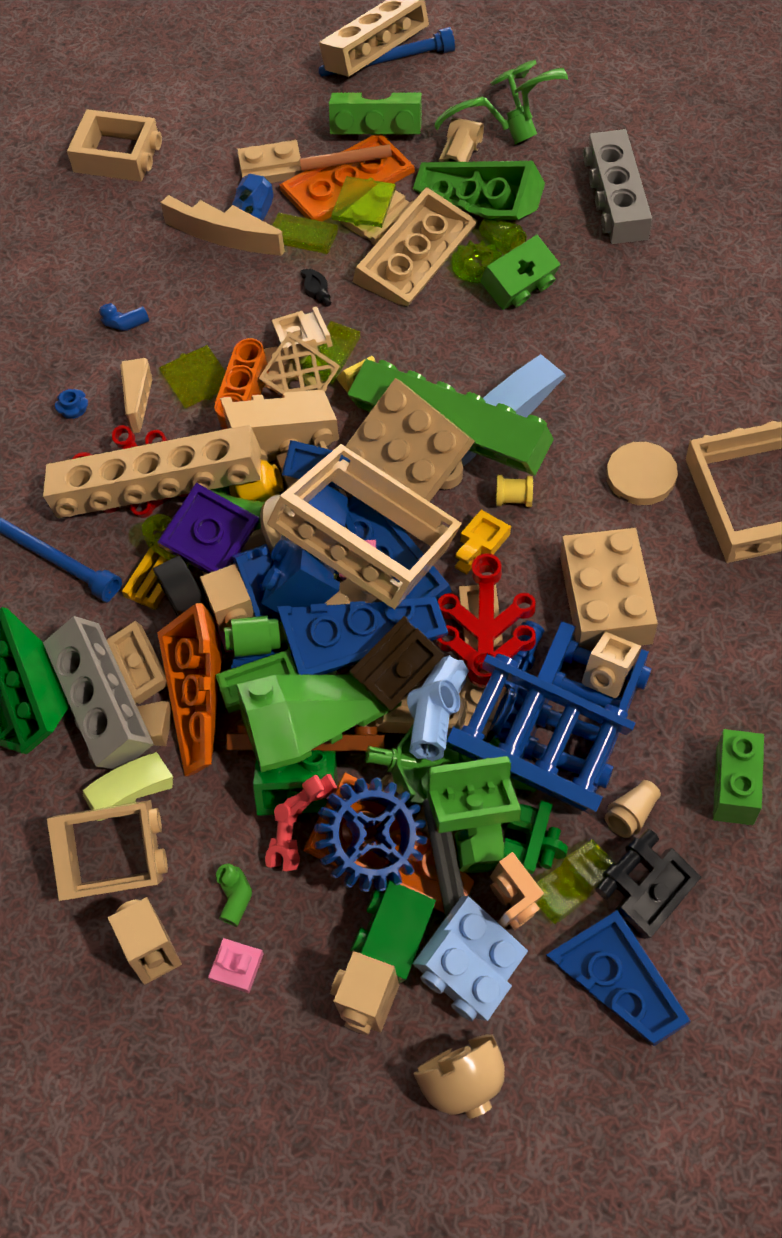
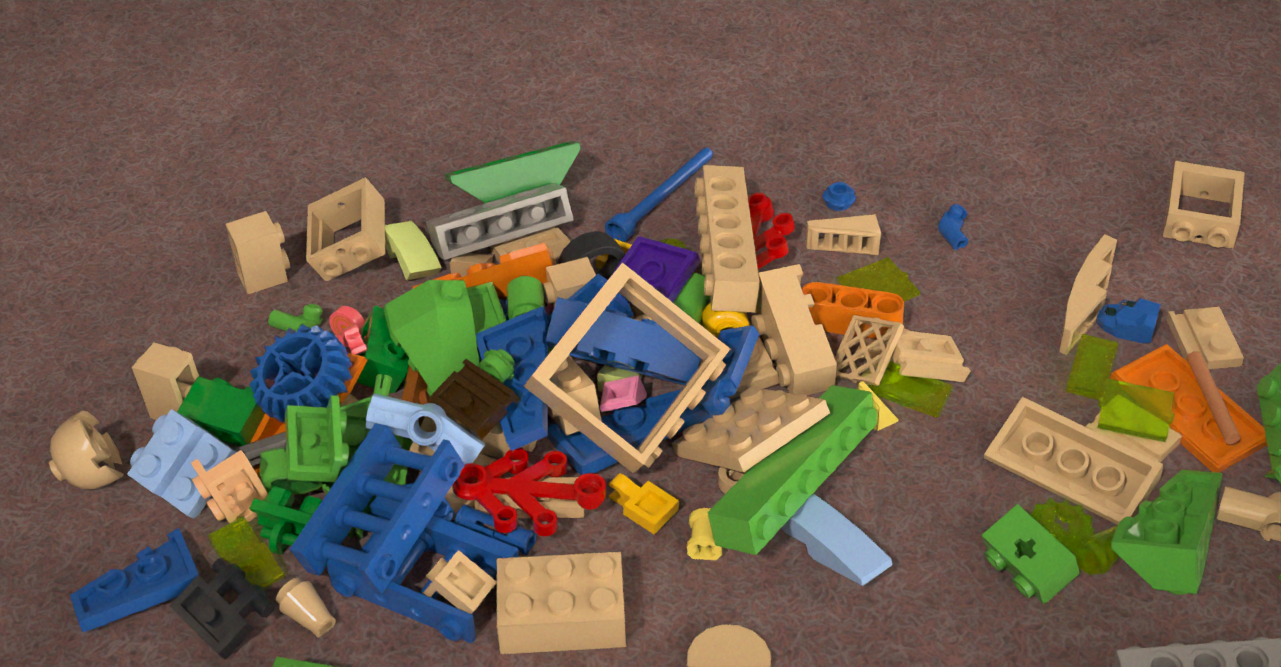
camera: 90 degrees right, 15 degrees down
(236, 965) = (234, 322): bright pink tile -> none
(246, 833) = (345, 317): none -> coral tile
(316, 286) = (1010, 379): black piece -> none
(361, 638) = (498, 364): none -> bright green plate

